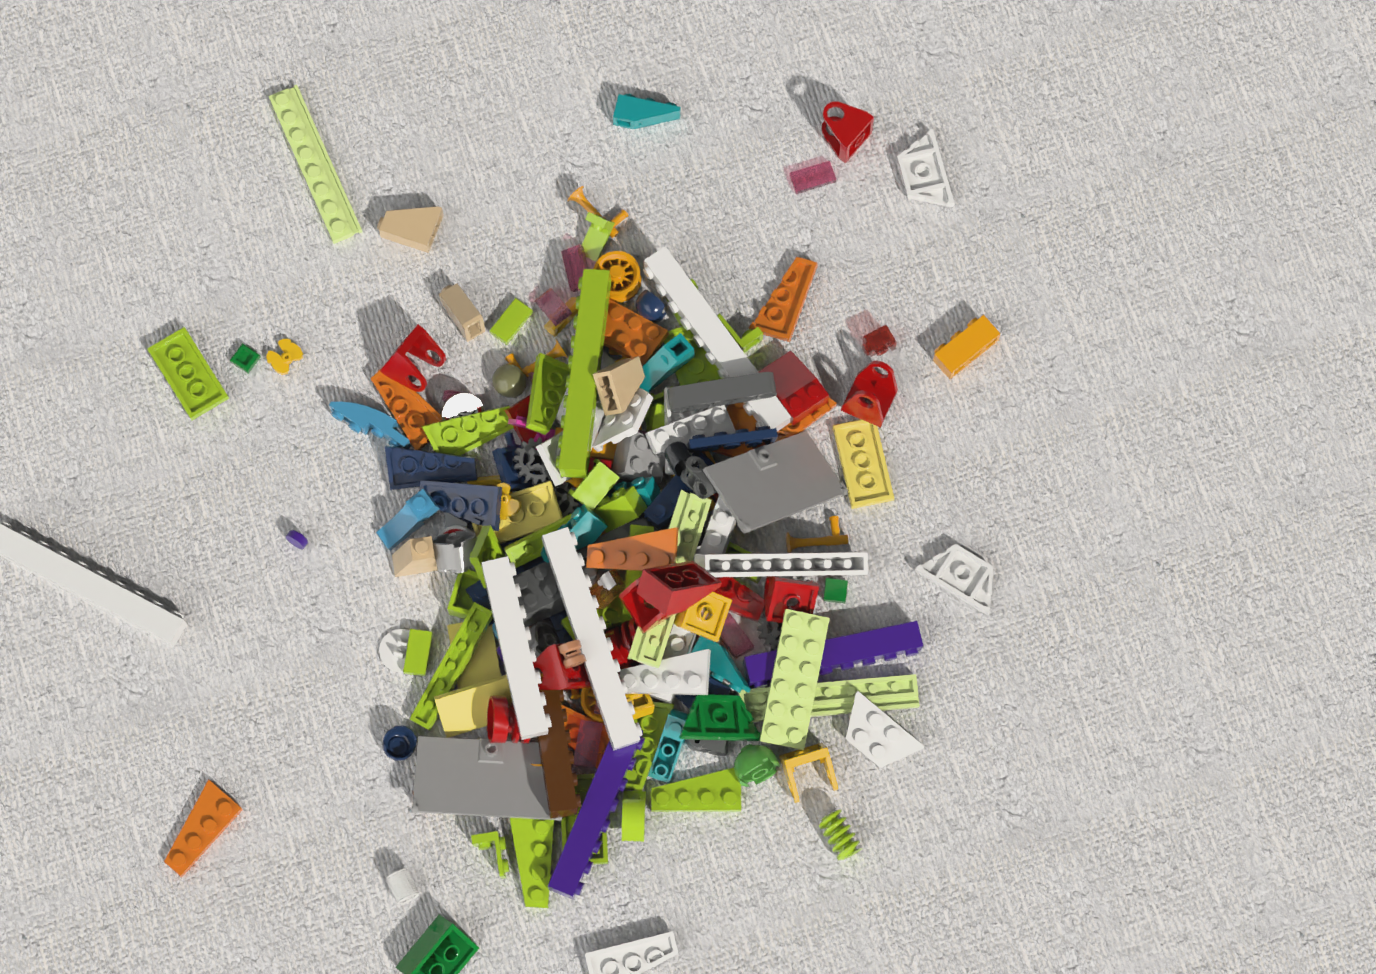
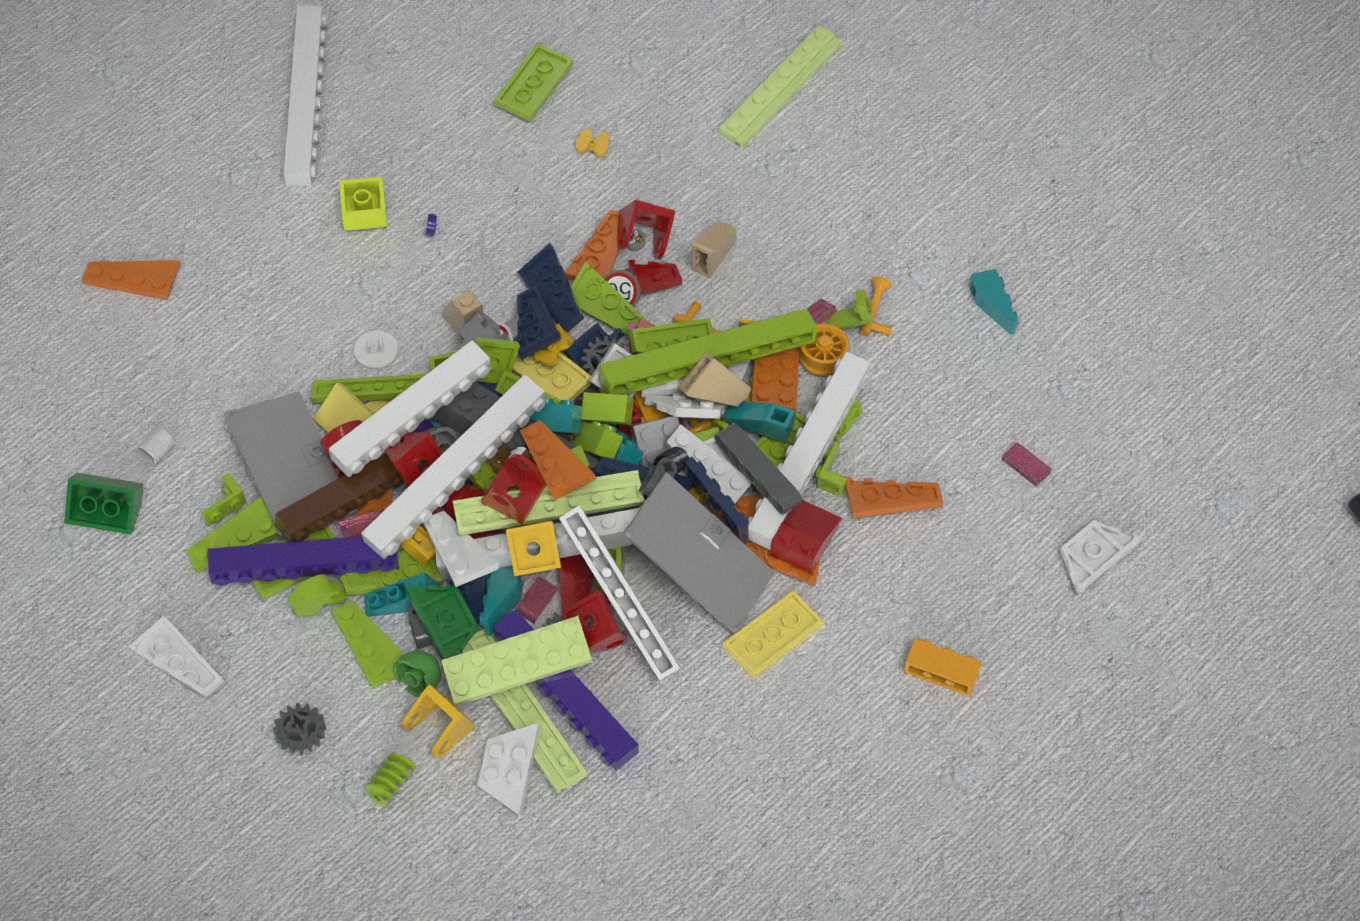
camera: 60 degrees right, 15 degrees down
(243, 587) = (363, 203): none -> neon yellow brick
(245, 358) = (573, 117): green tile -> none
(363, 418) = (570, 228): dark azure slope -> none
(399, 743) = (286, 380): dark blue hair -> none
(408, 519) = (501, 294): dark azure slope -> none
(411, 226) = (770, 178): tan slope -> none
(417, 652) = (379, 360): lime tile -> none
(460, 375) = (656, 276): none -> red wing
(509, 381) = (672, 310): olive hair -> none
(511, 321) = (730, 292): lime tile -> none
(553, 307) = (761, 311): clear pink tile -> none
(574, 658) = (428, 451): nougat wheel -> none
(650, 306) = (809, 386): dark blue hair -> none
(676, 586) = (531, 490): red slope -> none
(753, 897) = (291, 736): none -> dark grey gear
(835, 539) = (682, 644): light orange piece -> none
(835, 590) = (632, 668): green tile -> none
(849, 131) = (1087, 465): red hose -> none
(875, 386) = (851, 601): red hose -> none
(878, 342) = (899, 589): clear red brick -> none
(961, 575) = (710, 770): white wing -> none

